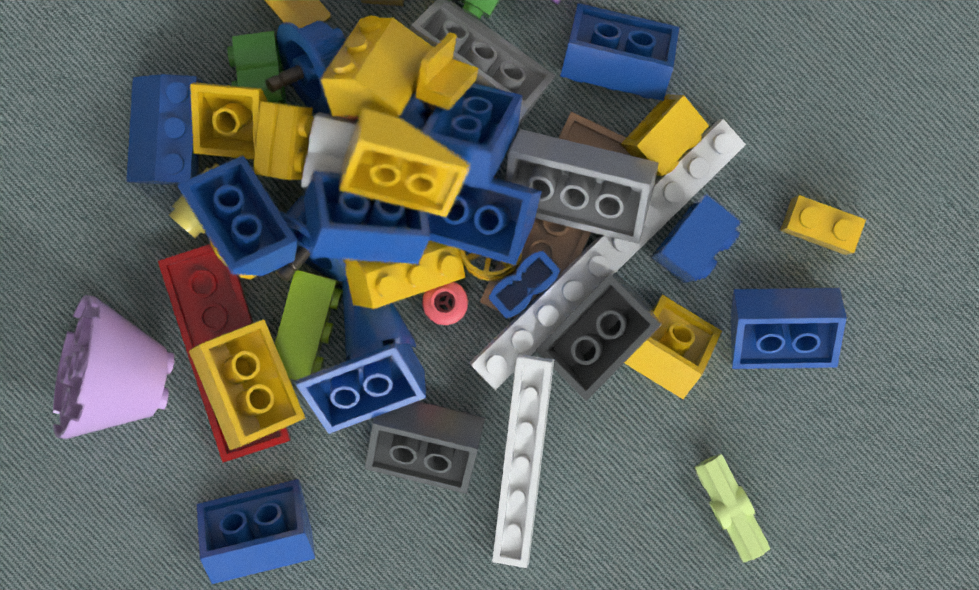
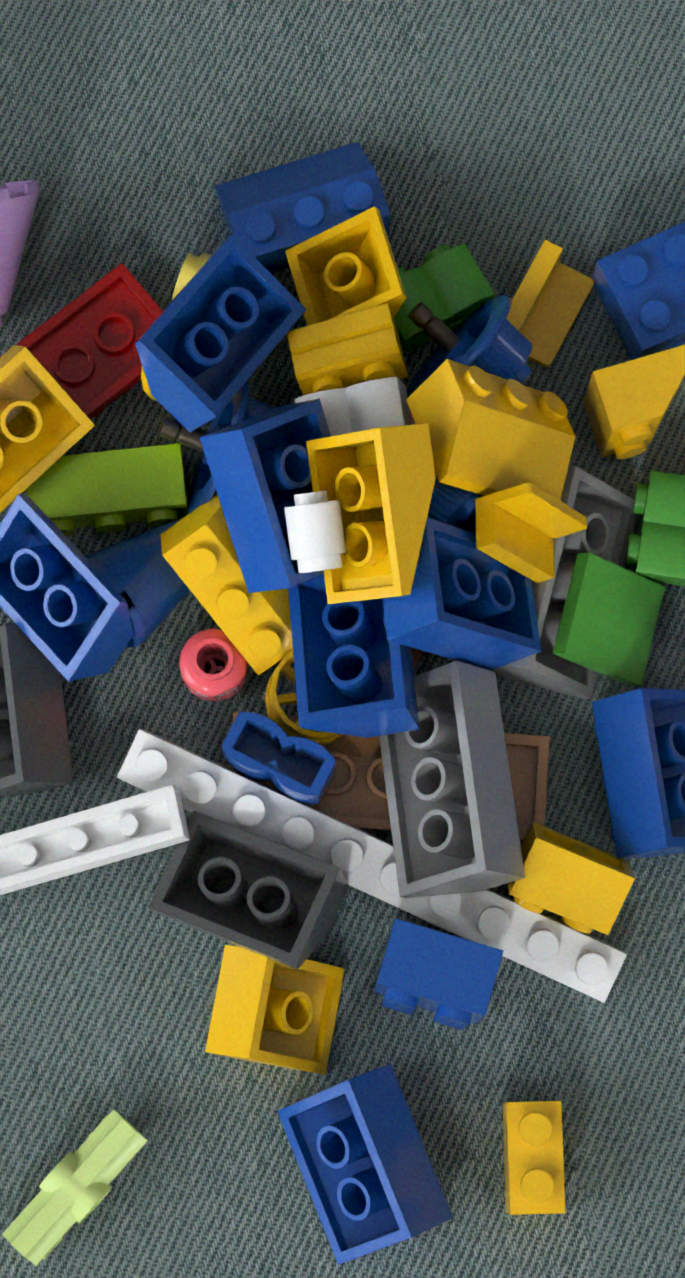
camera: 65 degrees right, 10 degrees down
(403, 207) = (315, 532): none -> white brick
(512, 44) = (608, 619): none -> bright green tile

